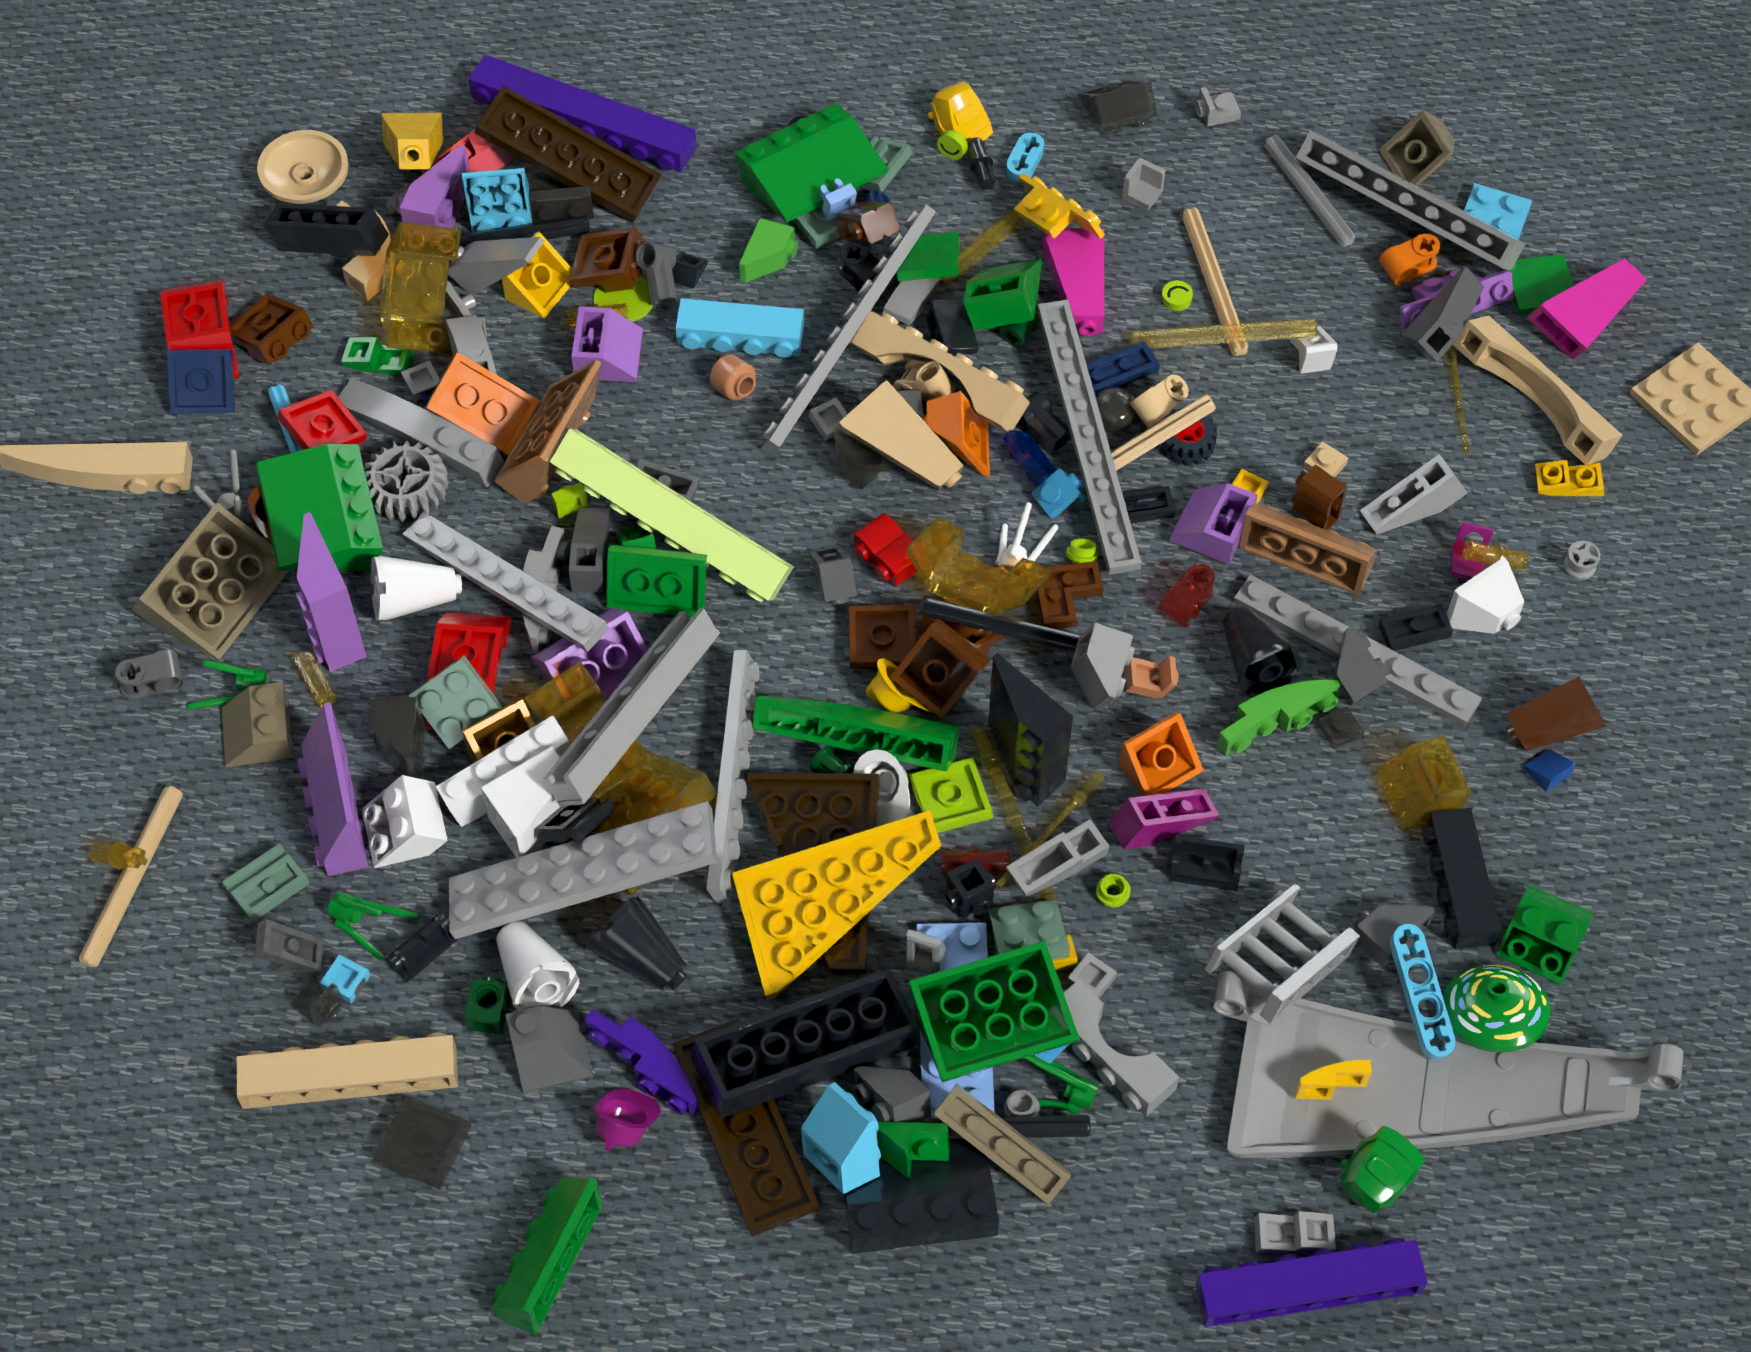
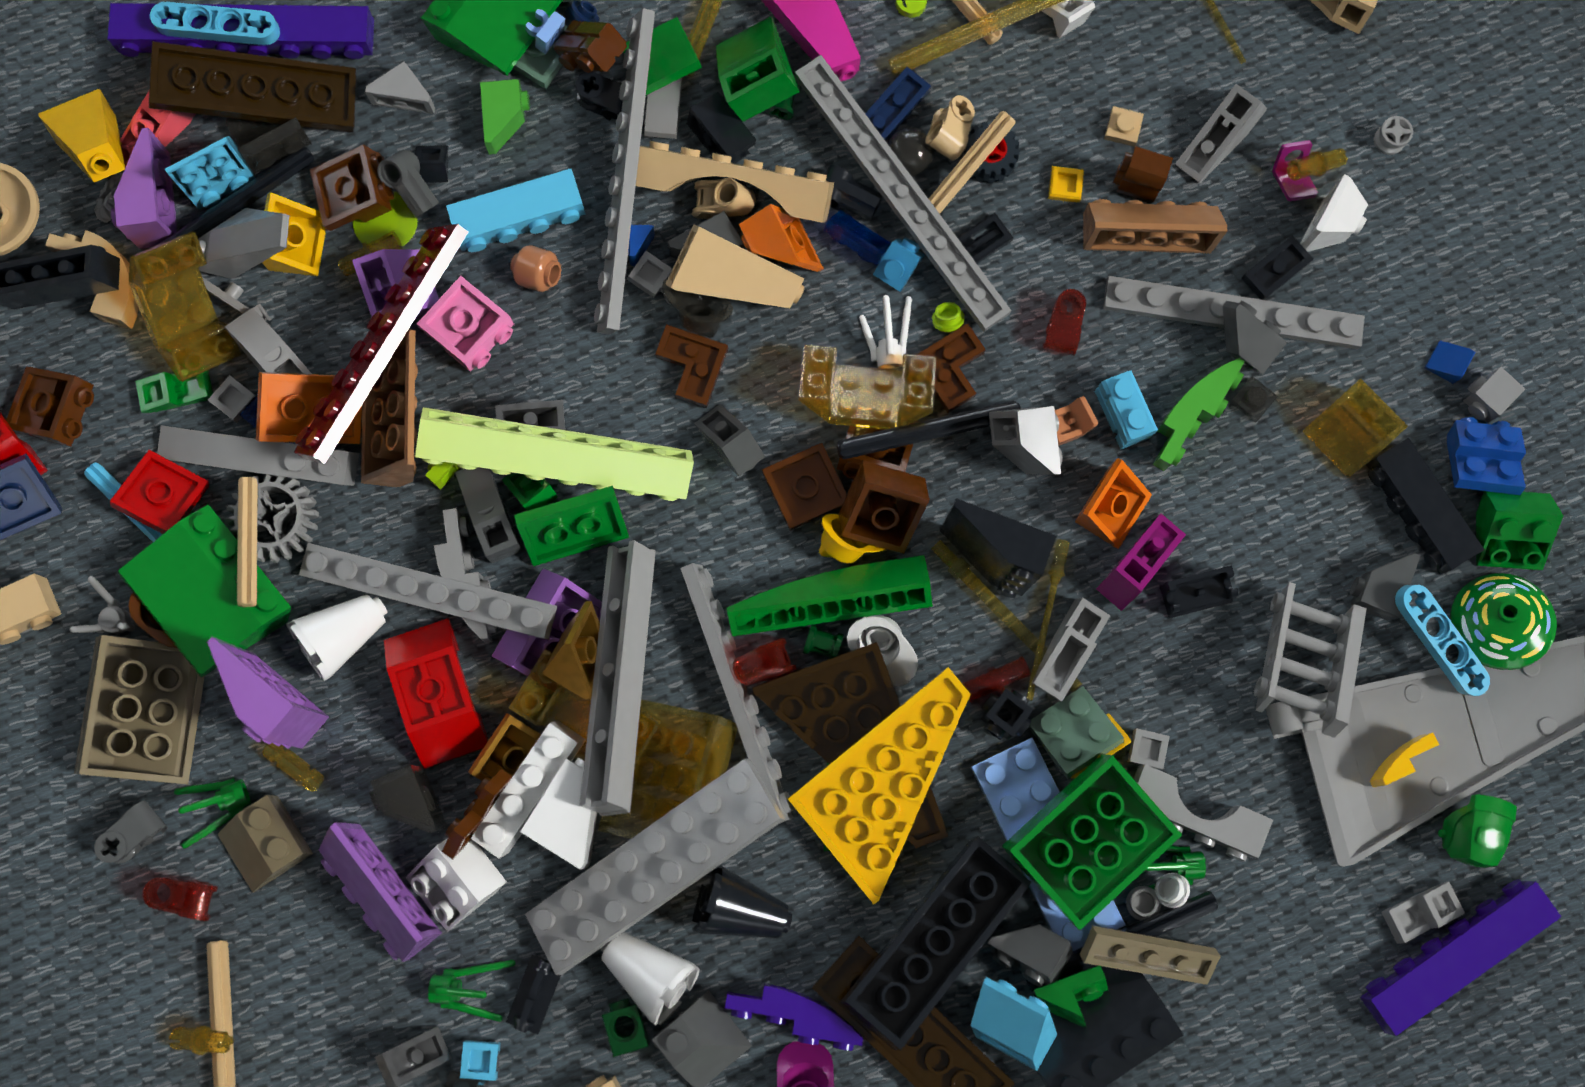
camera: 30 degrees left, 20 degrees up
(169, 742) = (186, 898): none -> clear red piece
(265, 882) = (355, 998): sand green plate -> none
(374, 480) = (247, 542): none -> tan axle
(435, 771) = (459, 831): none -> reddish brown plate
(455, 700) = (445, 740): sand green plate -> none
(558, 369) = (384, 336): none -> dark red plate
(564, 93) = (216, 18): none -> medium azure beam
(574, 821) = (624, 828): black plate -> none
(605, 667) = (575, 653): none -> pearl gold slope
(650, 397) = (467, 324): none -> bright pink plate
(688, 203) = (400, 90): none -> light grey slope
(768, 754) = (764, 663): none -> clear red piece
(834, 386) = (639, 241): none -> blue slope
(839, 501) = (701, 360): none -> reddish brown plate
(886, 549) = (769, 393): red brick -> none
(924, 952) = (1002, 801): light grey slope -> none
(952, 796) = (944, 627): lime tile -> none
(1052, 1099) = (1172, 890): none -> white plate
(1113, 881) = (1136, 647): lime plate -> none
(1210, 685) = (1126, 409): none -> medium azure brick
(1214, 521) = (1055, 234): medium lavender slope -> none
(1258, 652) = (1152, 355): black cone -> none
(1544, 856) = (1486, 456): none -> blue plate
(1554, 716) = (1438, 311): reddish brown slope -> none
(1560, 480) = (1346, 53): yellow slope -> none
(1577, 810) = (1492, 394): none -> light grey brick

